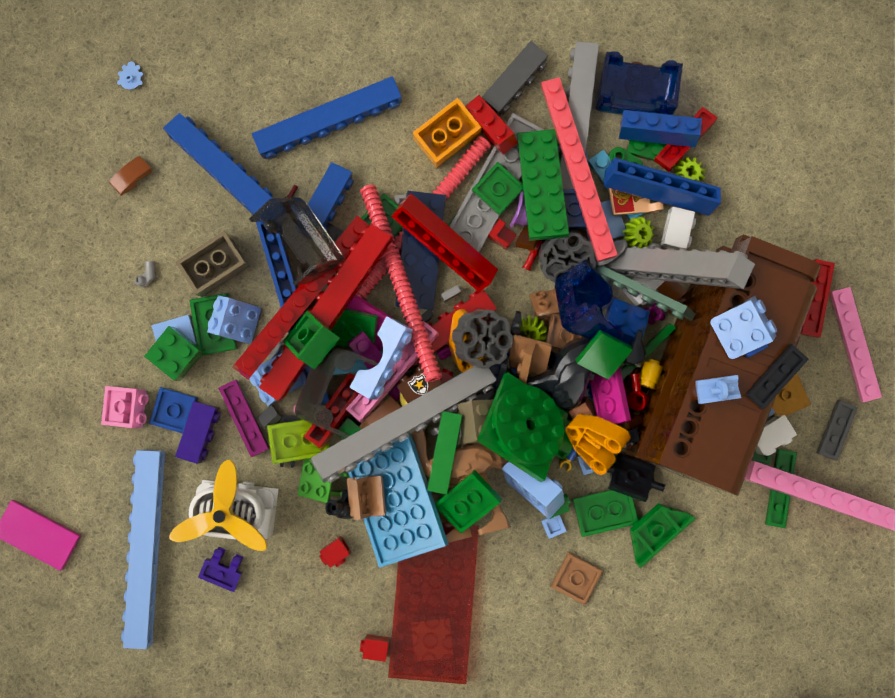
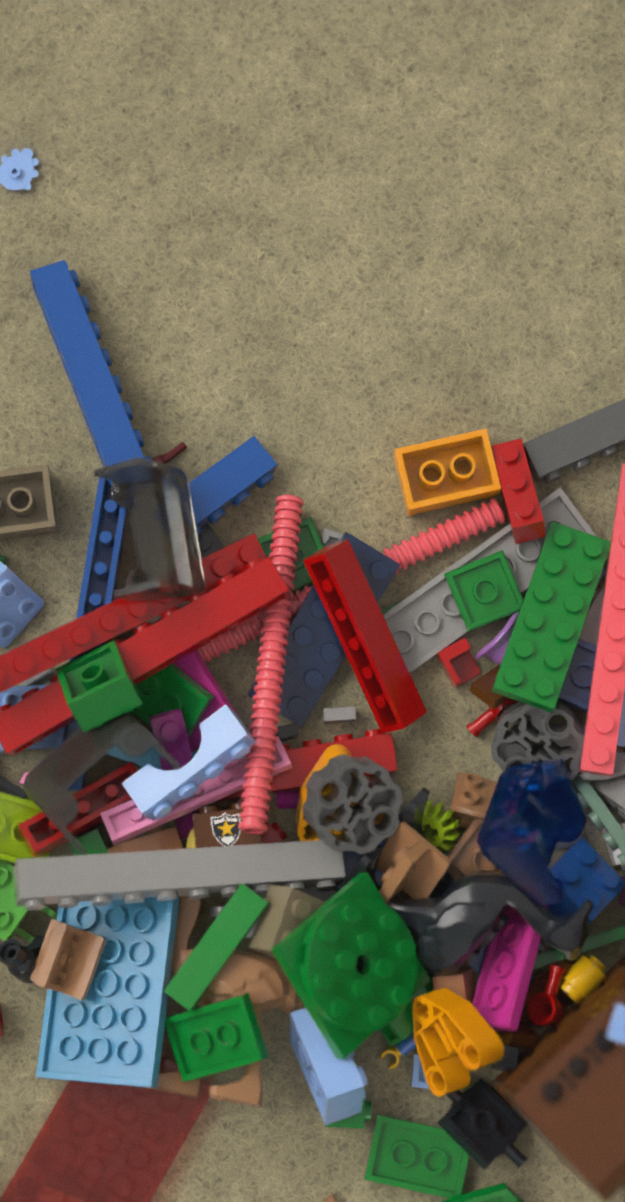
camera: 25 degrees right, 5 degrees down
(327, 117) = (279, 367): blue brick -> none
(553, 526) = (328, 1142): light blue tile -> none
(604, 354) = (520, 913): green tile -> none

